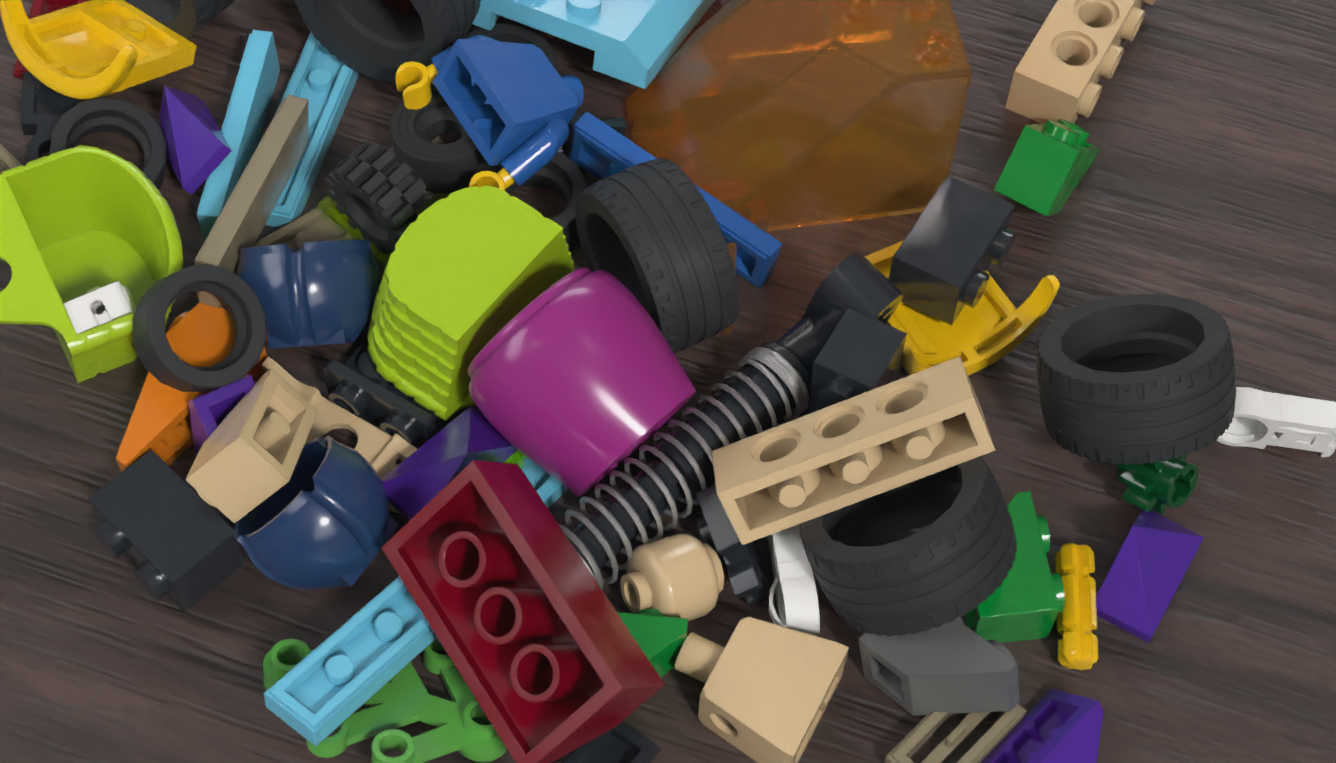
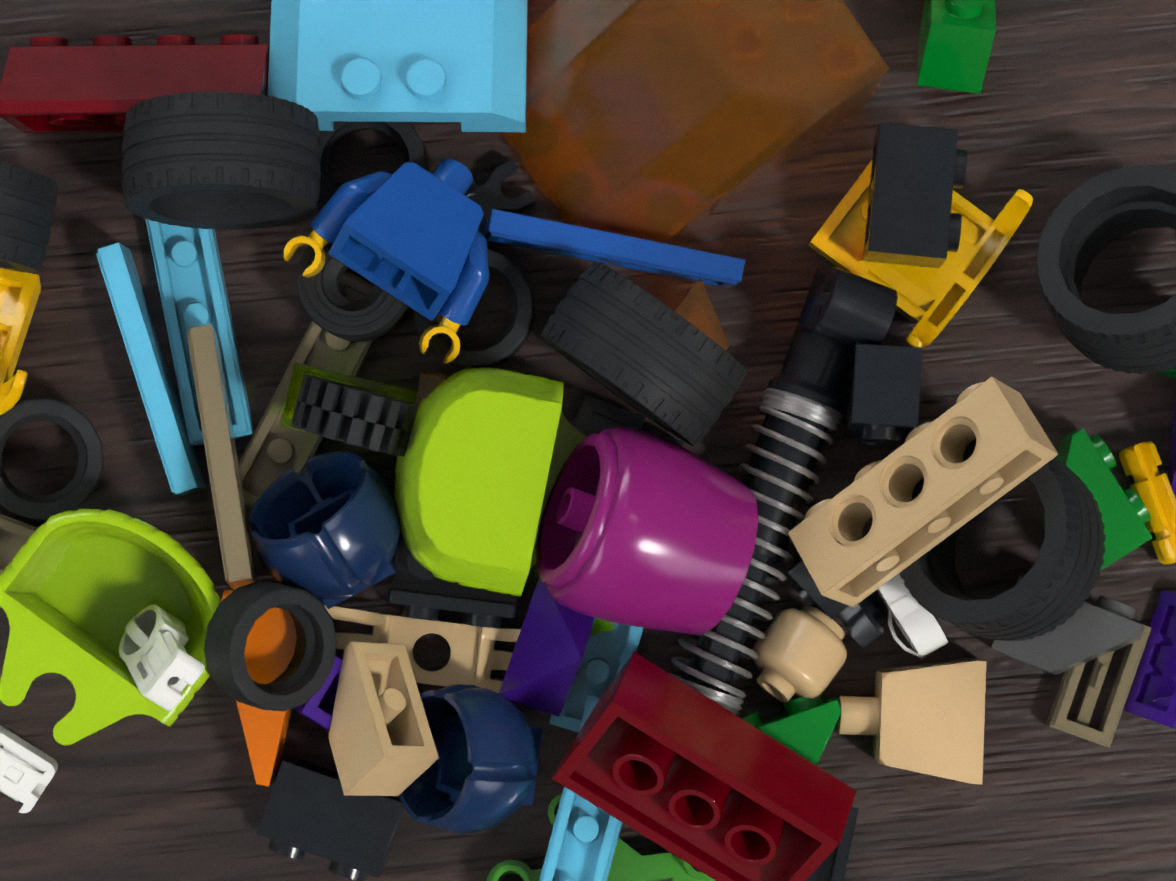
camera: 20 degrees left, 30 degrees up
(191, 137) = (116, 406): dark purple slope -> none

